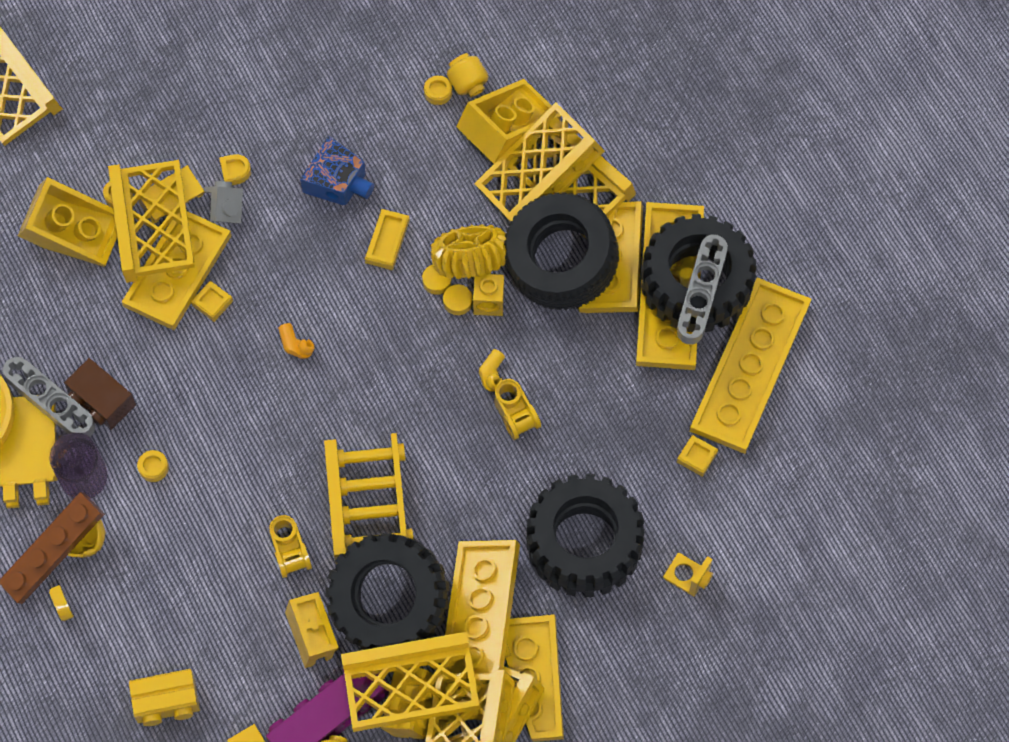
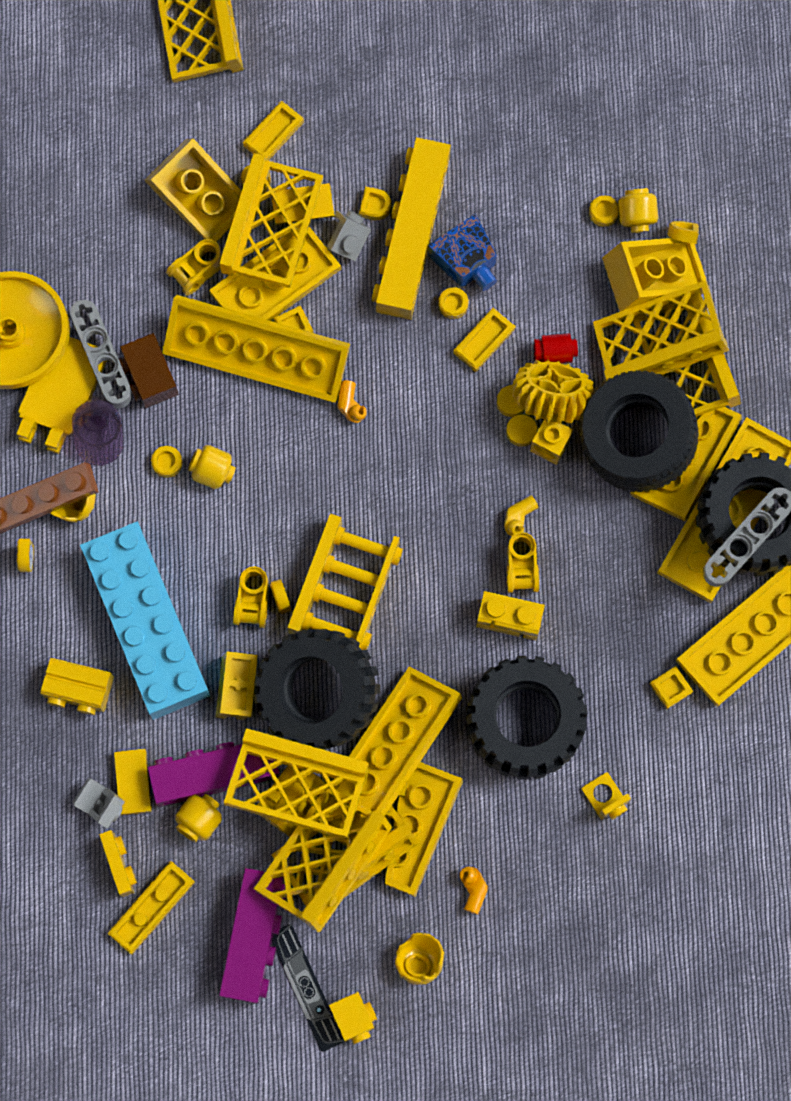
camera: 25 degrees right, 10 degrees up
(99, 292) = (194, 267): none -> yellow piece
(114, 146) = (273, 131): none -> yellow tile
(188, 331) = (256, 348): none -> yellow plate
(196, 450) = (211, 467): none -> yellow head
(200, 610) = (145, 620): none -> medium azure brick
(279, 174) = (412, 229): none -> yellow brick
(313, 534) = (280, 596): none -> yellow tile
(344, 221) = (453, 303): none -> yellow tile
(453, 217) = (556, 348): none -> red brick
(515, 76) = (683, 231): none -> yellow tile
(527, 457) = (510, 615): none -> yellow brick
(613, 705) = (476, 888): none -> light orange arm

